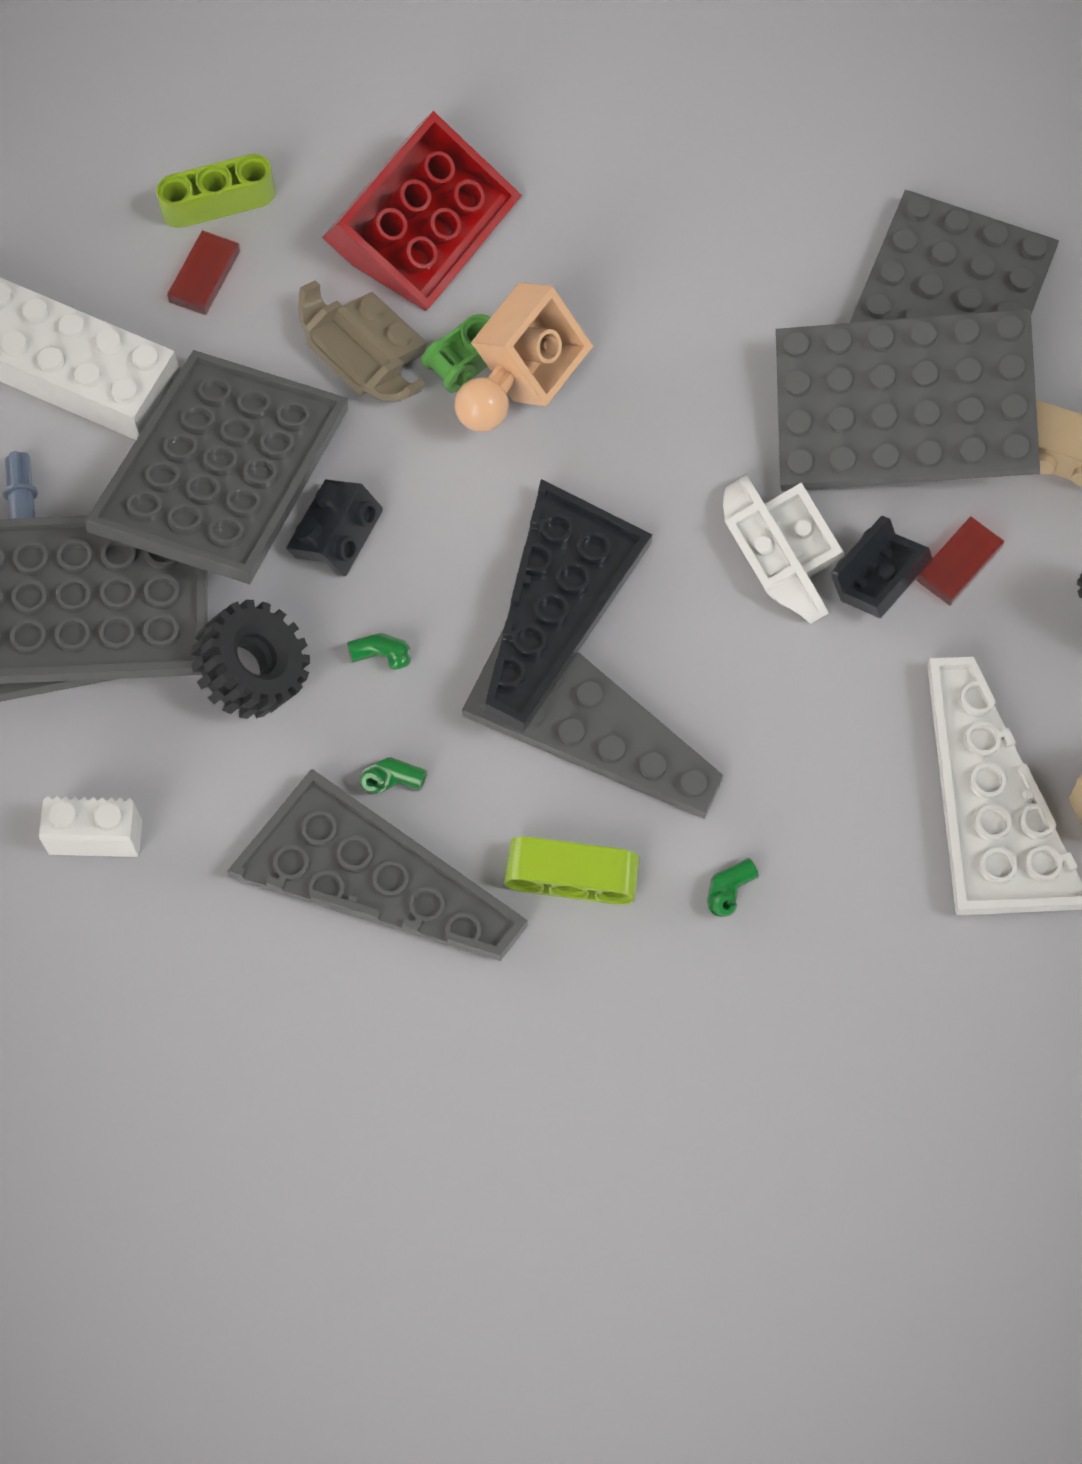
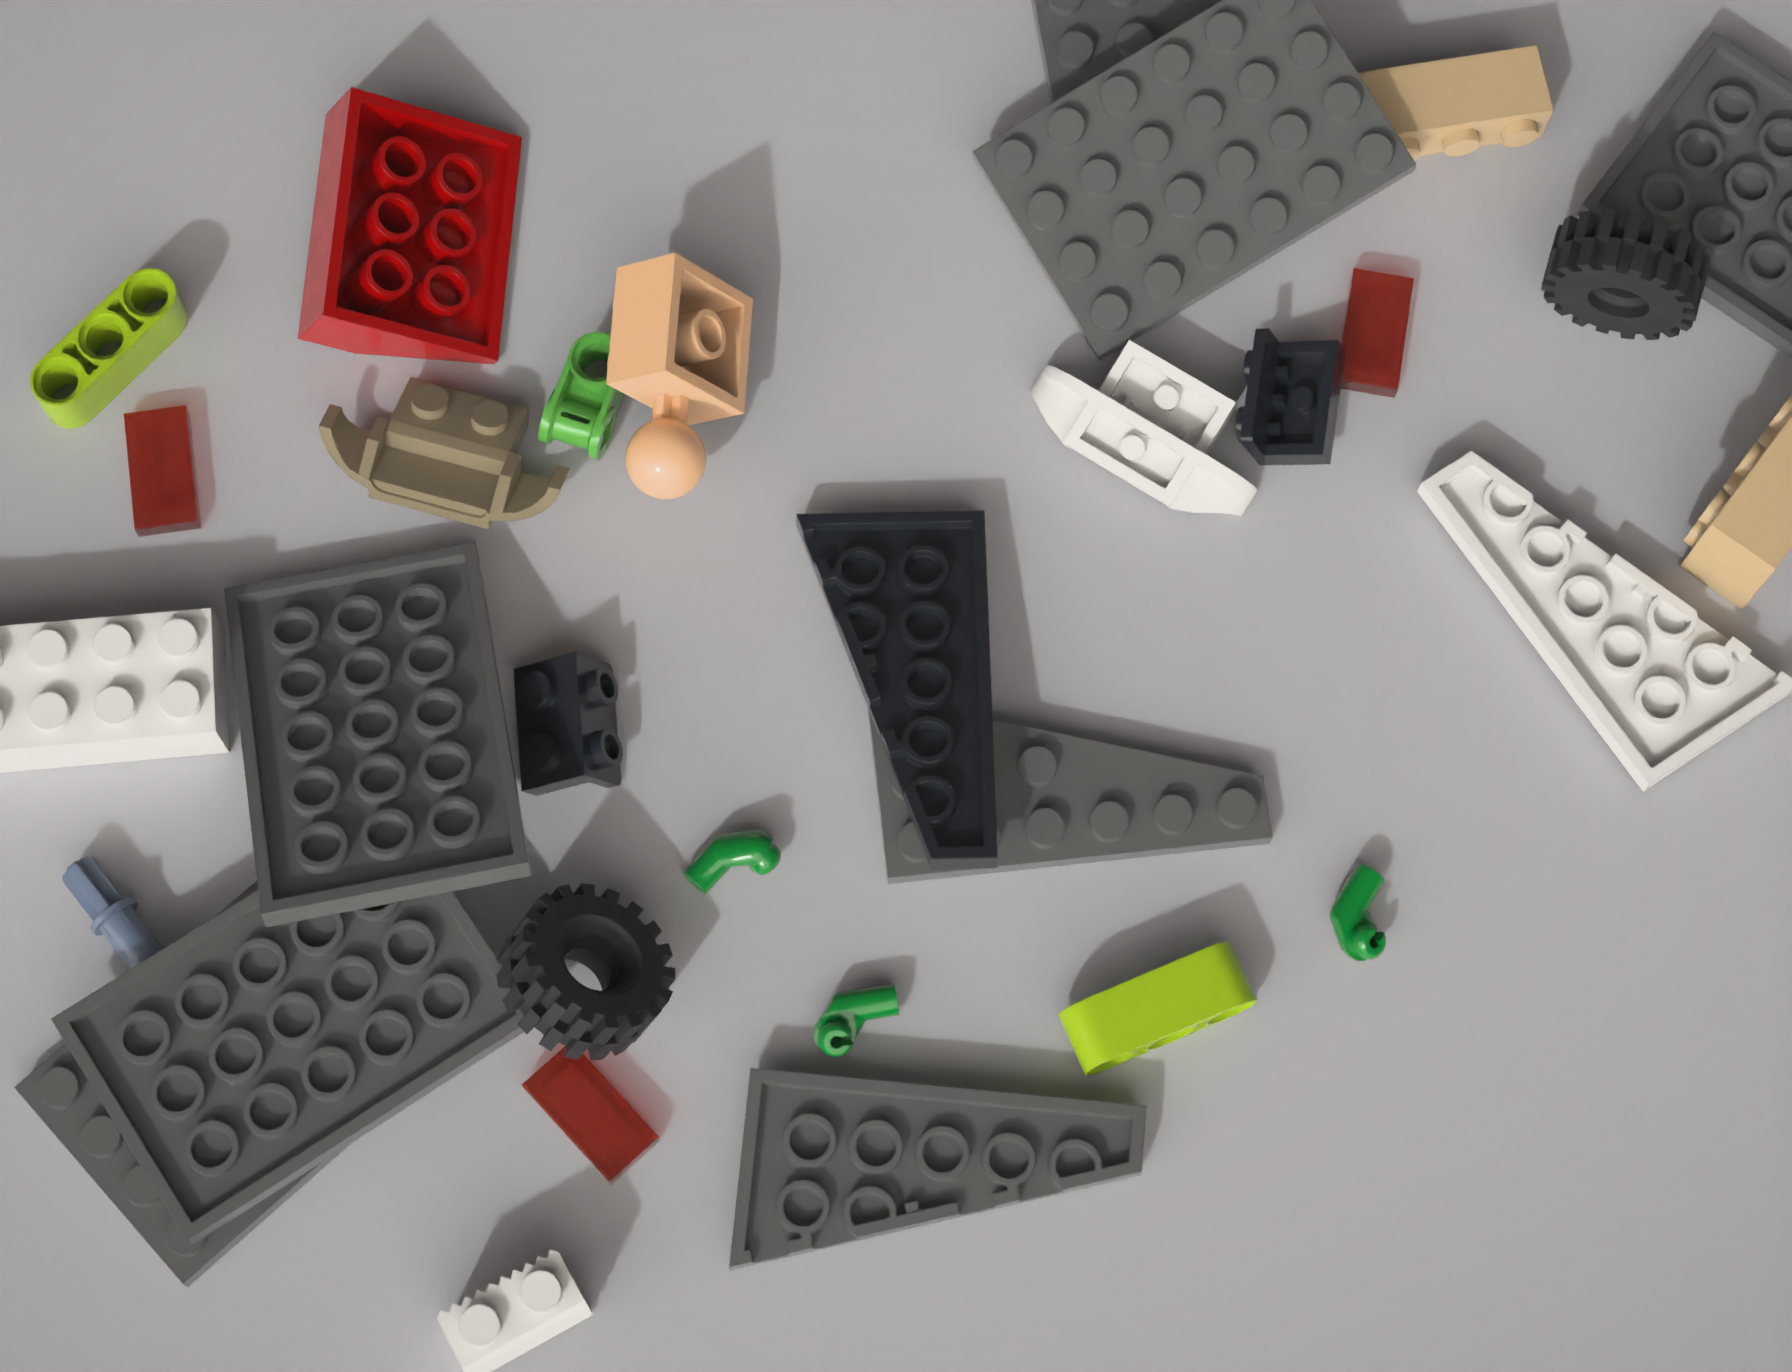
camera: 35 degrees left, 5 degrees up
(208, 746) = (591, 1114): none -> clear red tile

